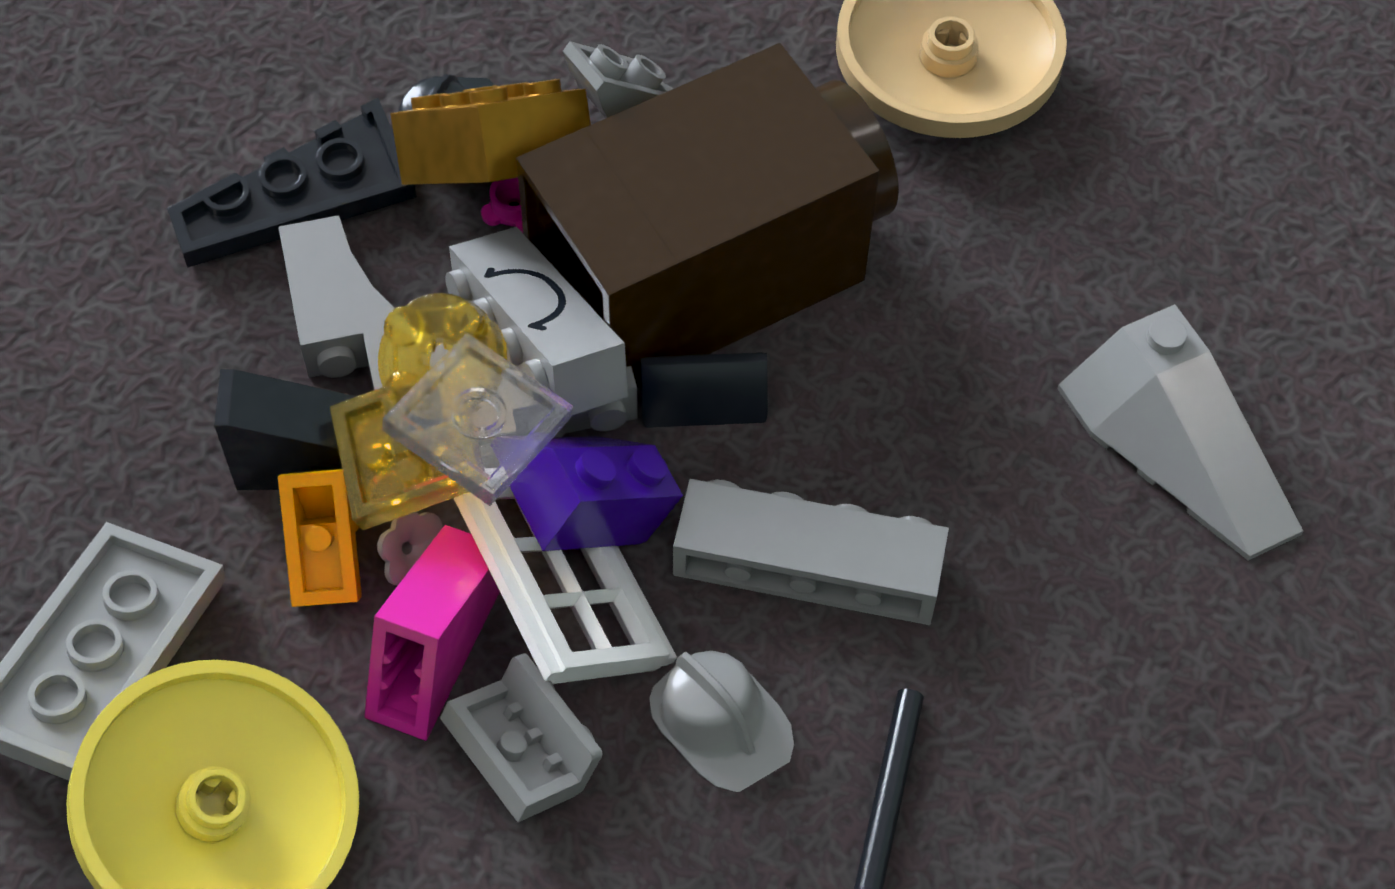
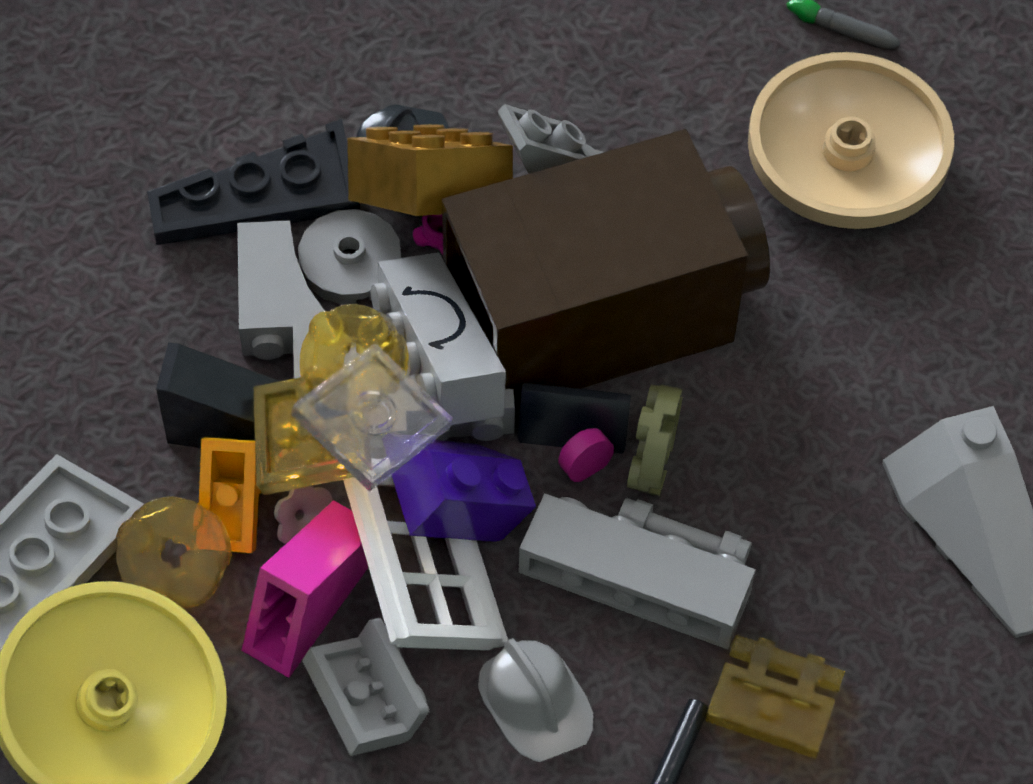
camera: 10 degrees right, 0 degrees up
(273, 576) = (187, 523): none -> clear yellow plate
(405, 270) = (340, 275): none -> light grey plate
(725, 428) = (585, 454): none -> dark pink tile
(802, 485) = (641, 513): none -> light grey bar
(804, 397) = (656, 439): none -> olive plate
(995, 684) = (771, 708): none -> clear yellow plate

